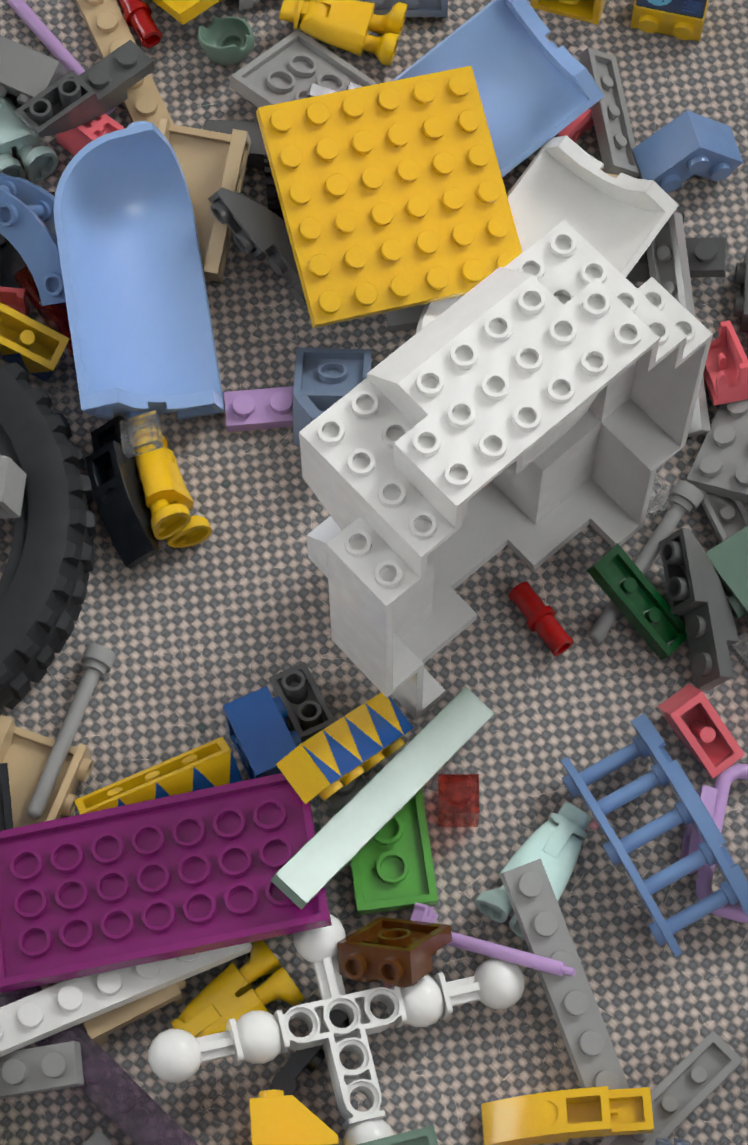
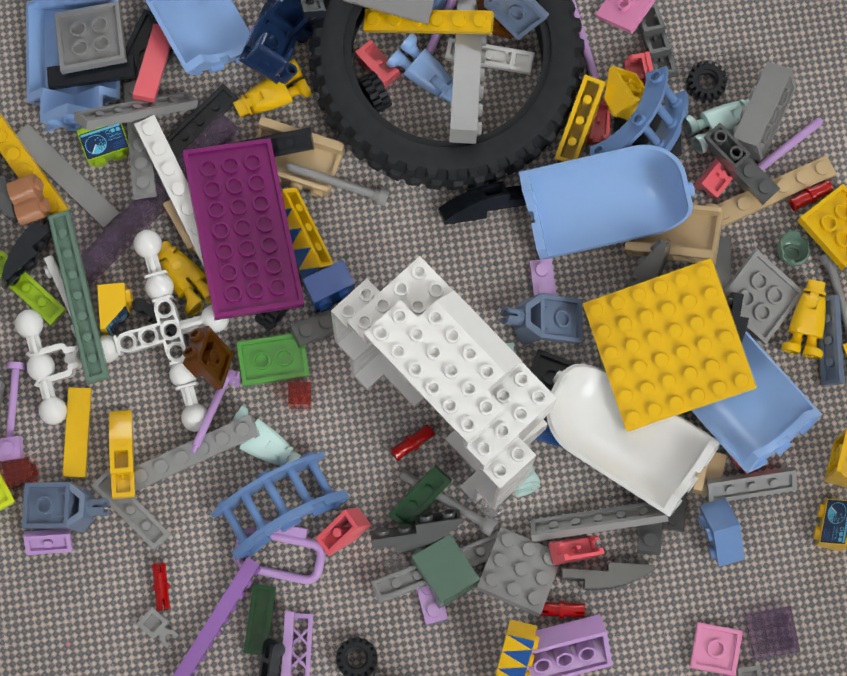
camera: 85 degrees right, 10 degrees up
(141, 434) = (514, 209): clear tile -> none
(170, 500) = (486, 226): yellow piece -> none
(344, 747) = (316, 324): yellow brick -> none
(381, 798) = (293, 350): tile -> none

